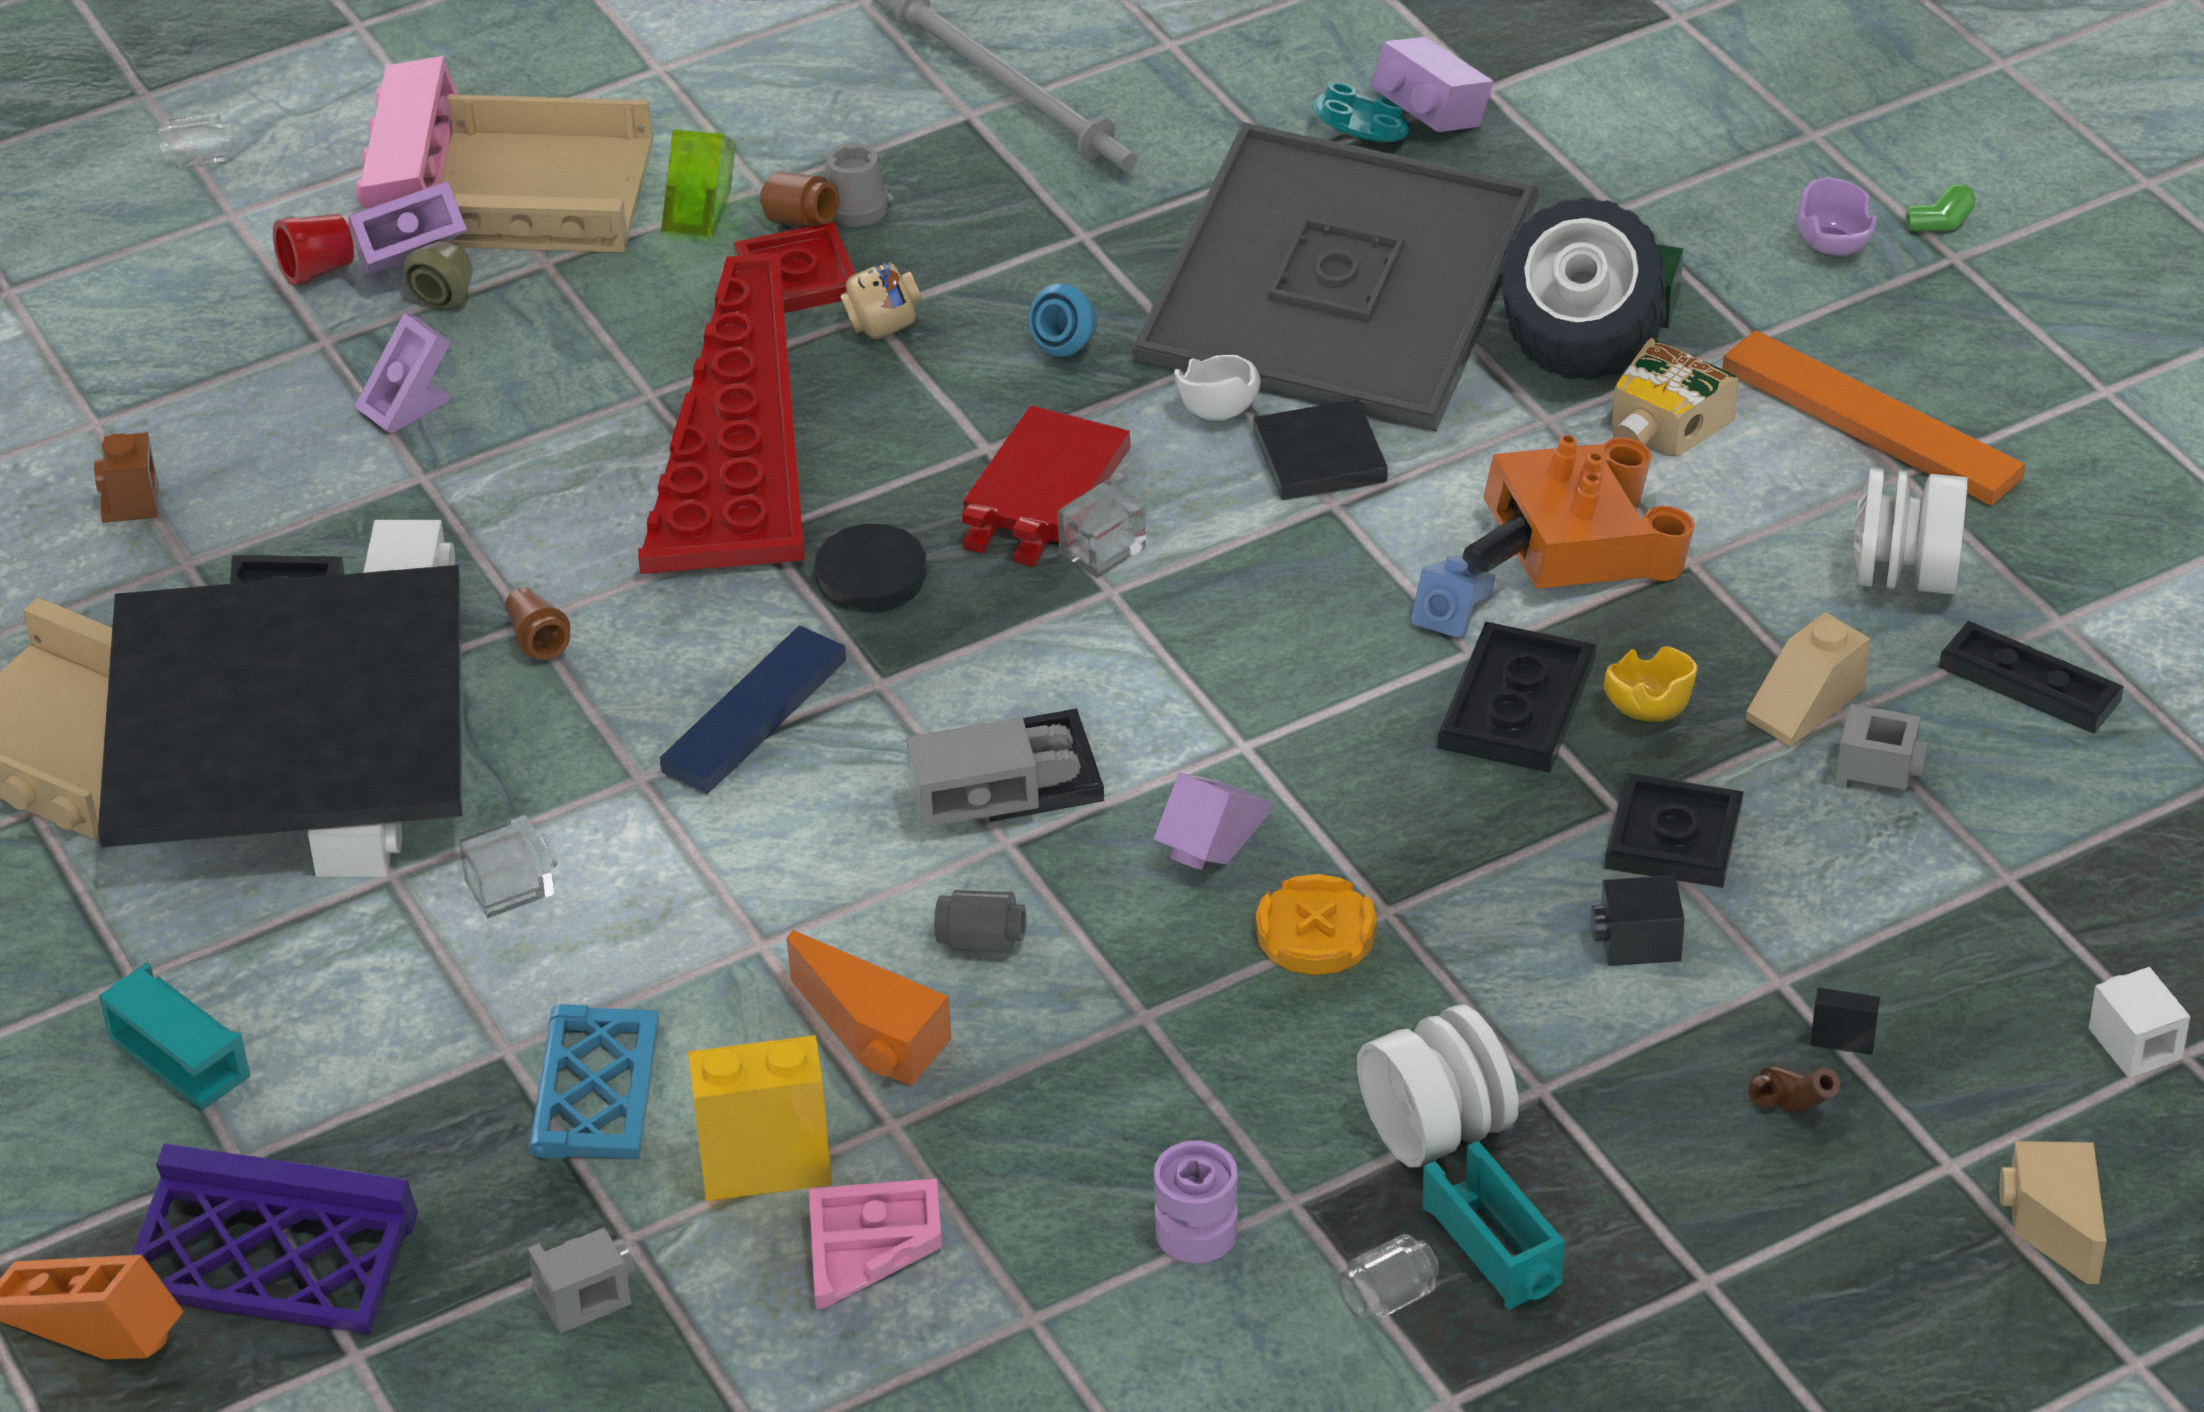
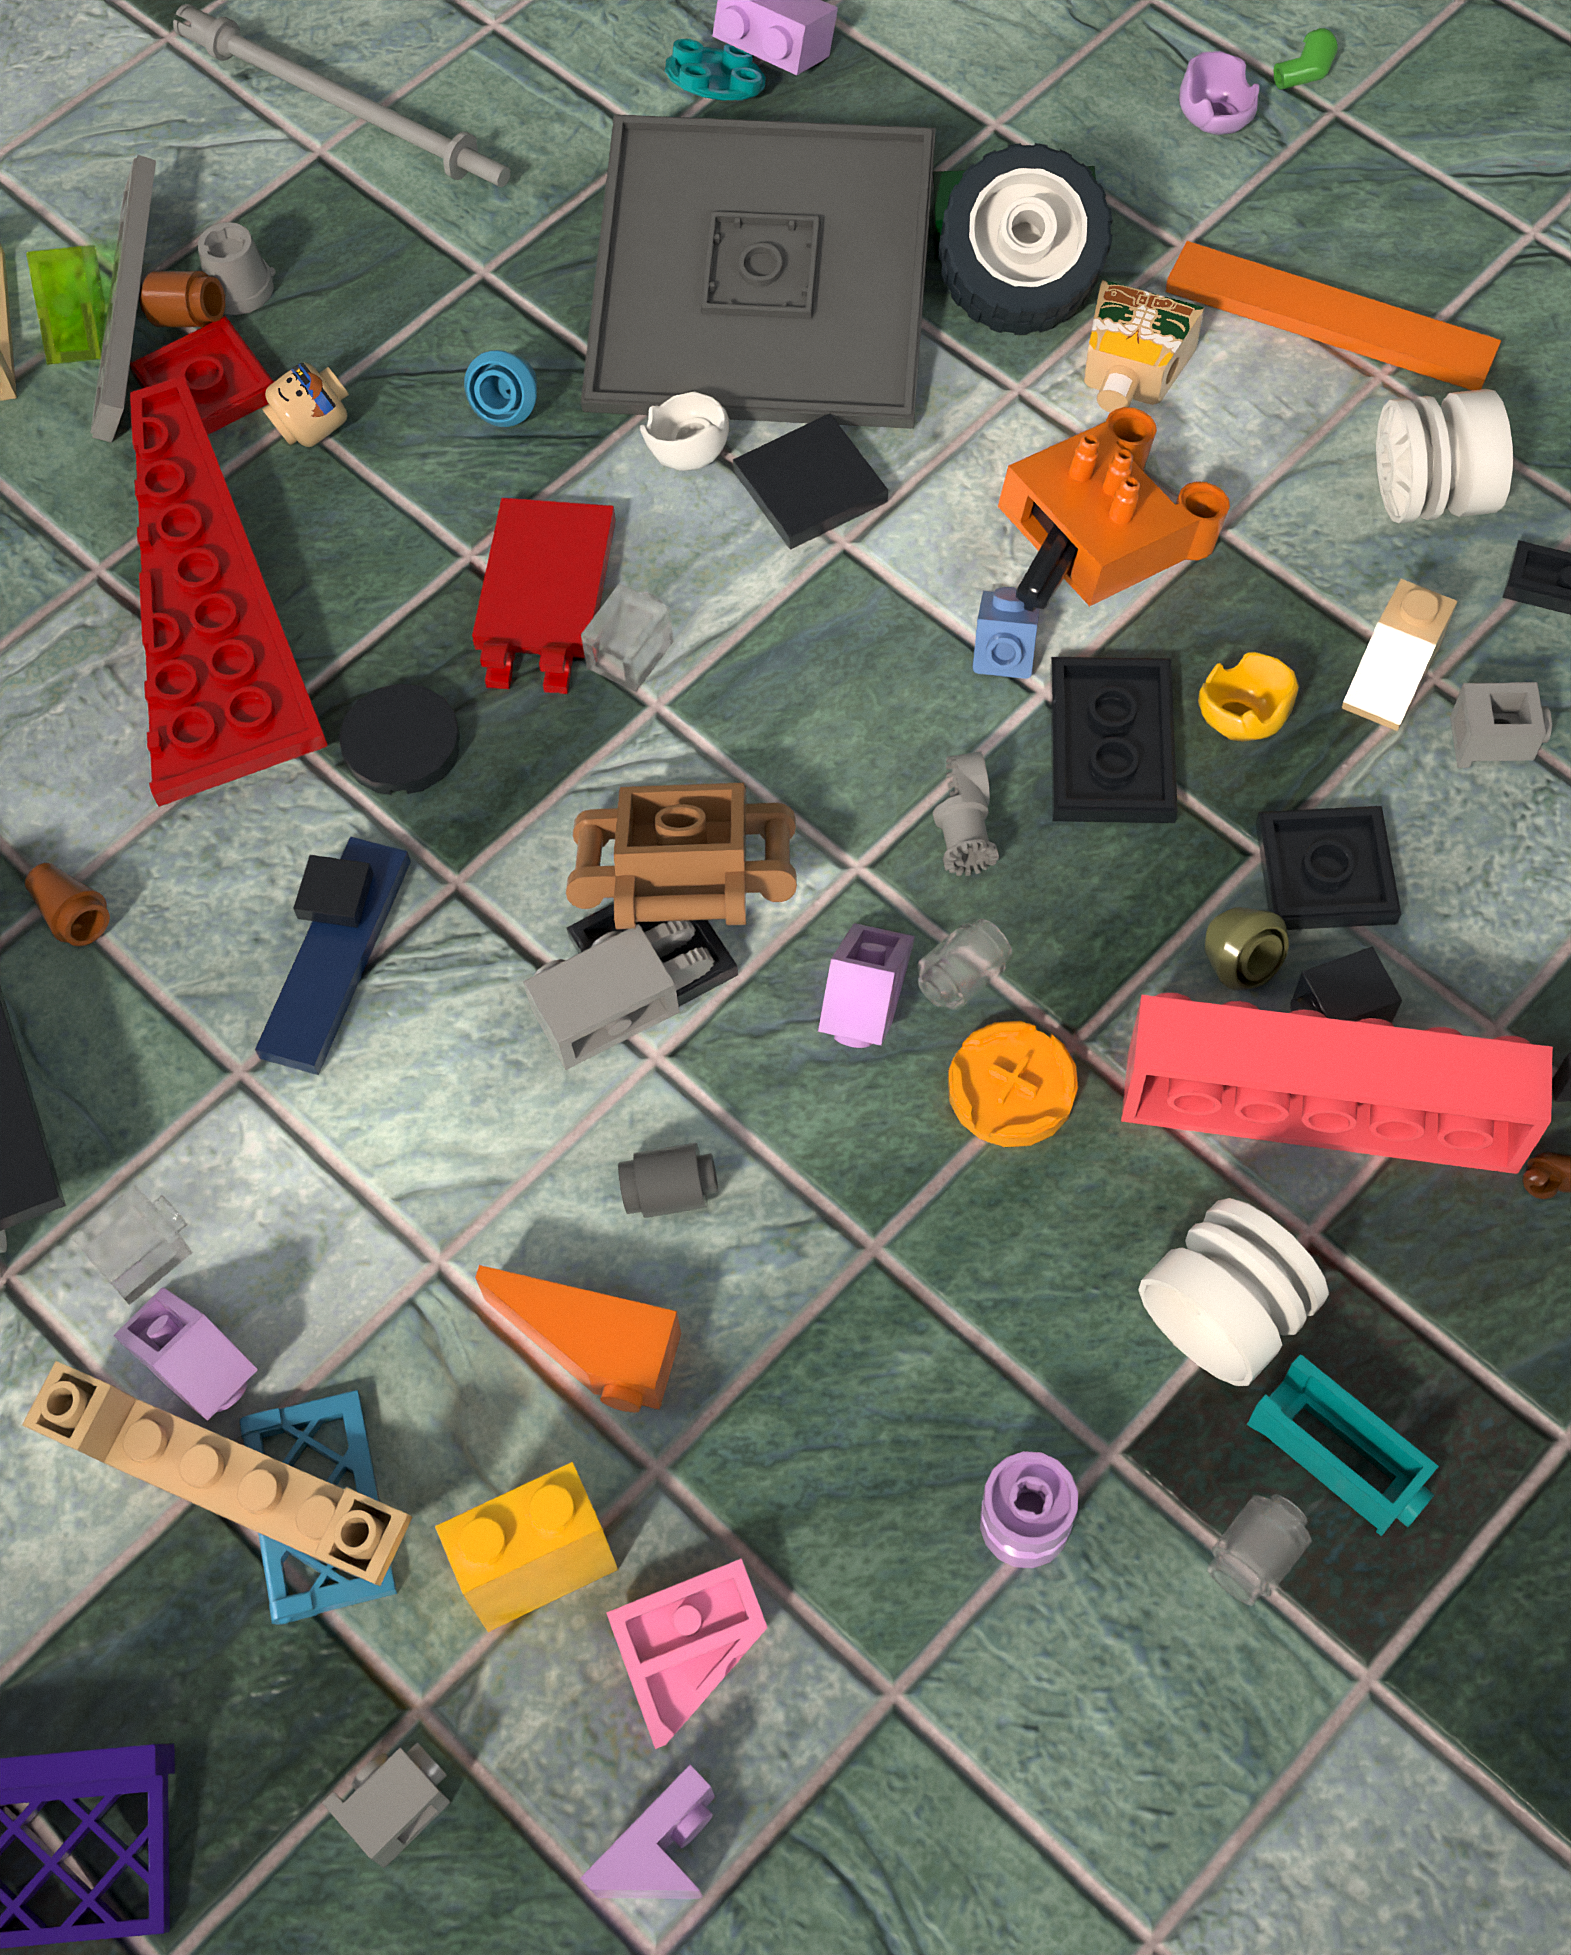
camera: 15 degrees left, 20 degrees up
(513, 1030) = (219, 1474): none -> tan slope
(527, 950) = (187, 1353): none -> lavender slope
(746, 190) = (123, 299): none -> light grey tile
(769, 656) = (333, 891): none -> black tile
(778, 1356) = (637, 1859): none -> lavender slope
(1085, 680) = (682, 854): none -> medium nougat brick
(1306, 825) = (963, 964): none -> clear brick
(1352, 719) = (964, 816): none -> light grey connector
(1568, 863) = (1246, 946): none -> olive cone
(1593, 964) = (1337, 1083): none -> coral brick

